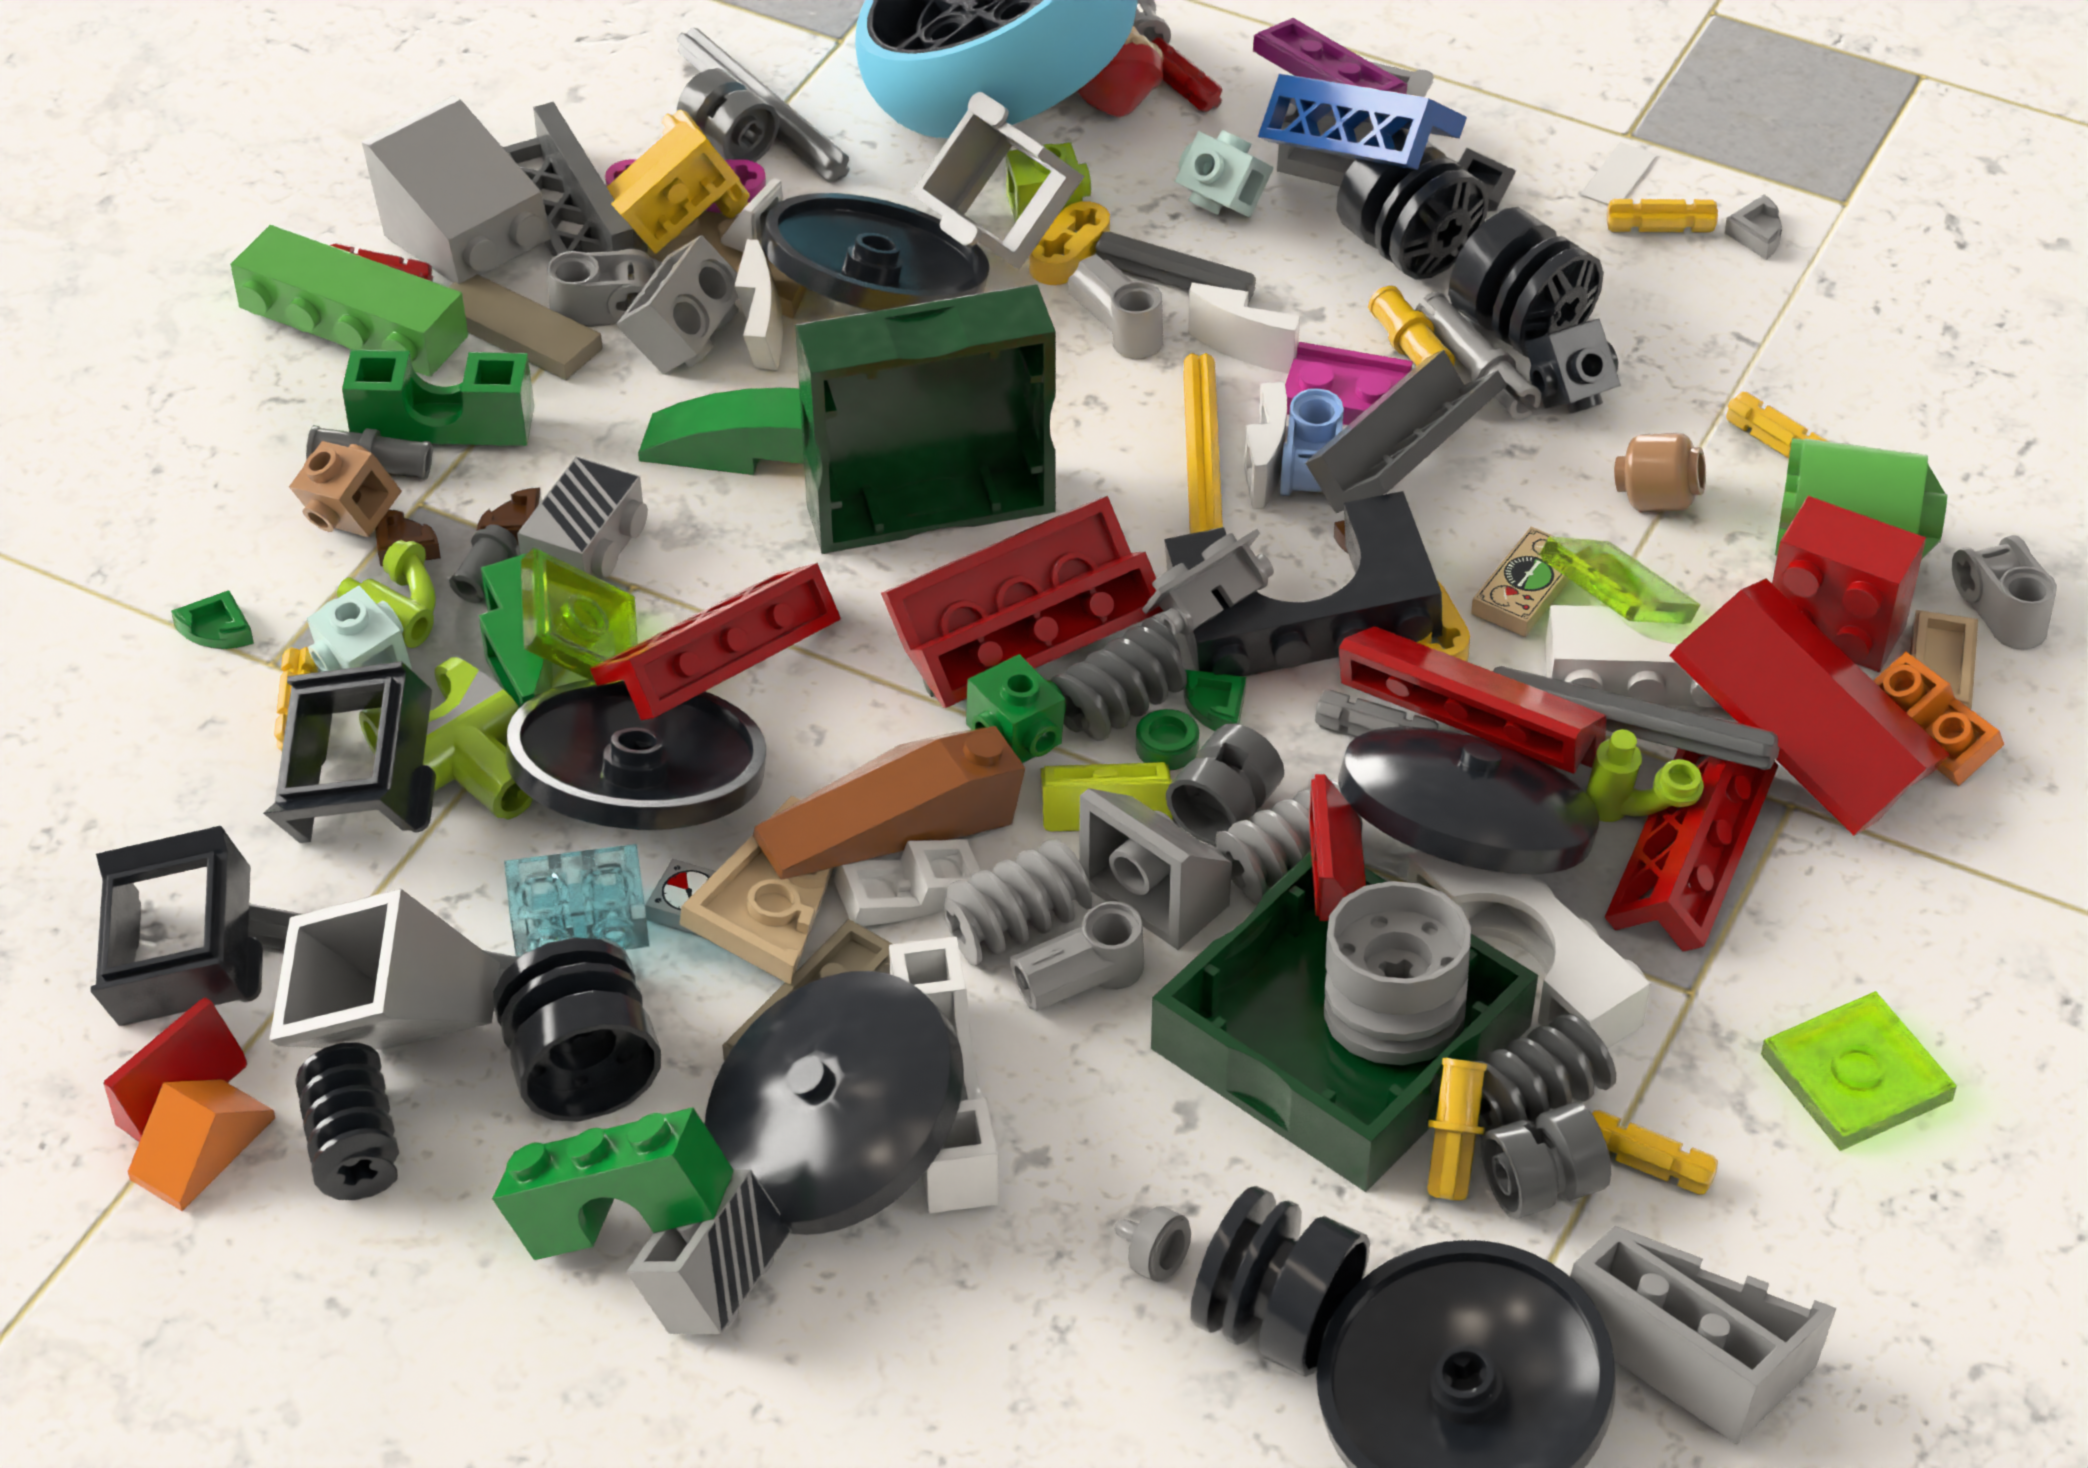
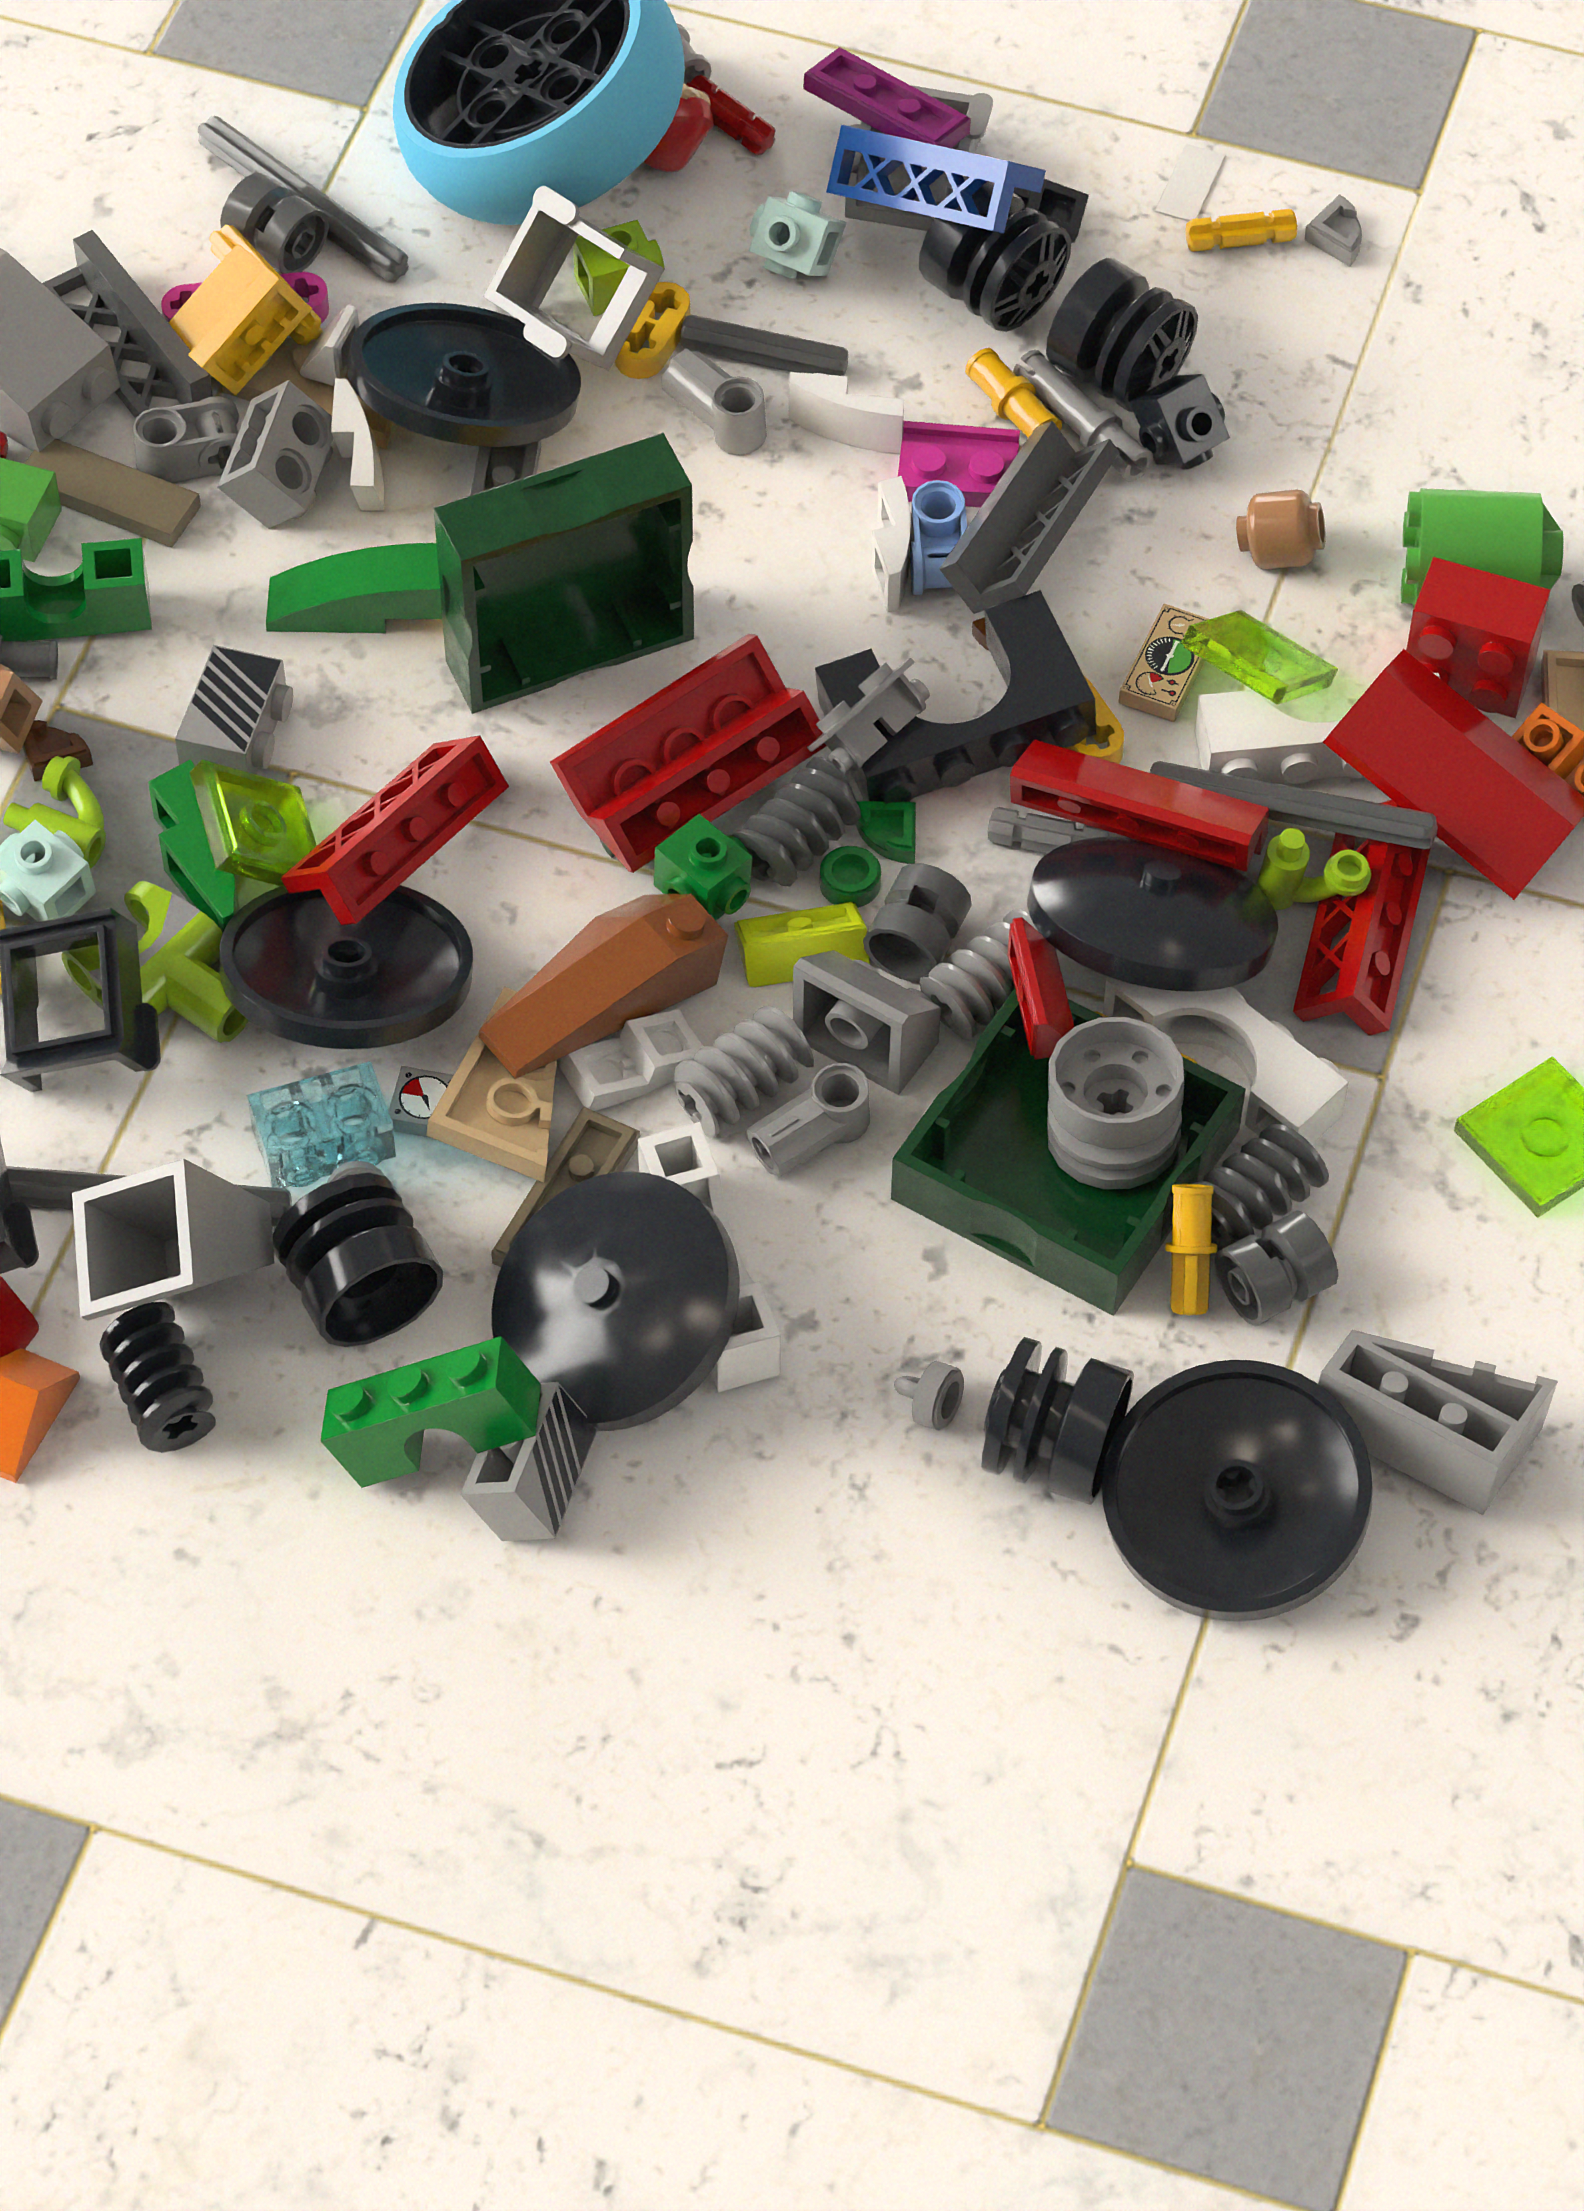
camera: 10 degrees left, 10 degrees up
(488, 547) = (146, 757): dark grey pin -> none
(513, 513) = (156, 715): reddish brown tile -> none
(1202, 443) = (828, 552): yellow axle -> none
(1657, 1154) = (1374, 1245): yellow axle -> none
(1767, 424) = (1384, 463): yellow axle -> none

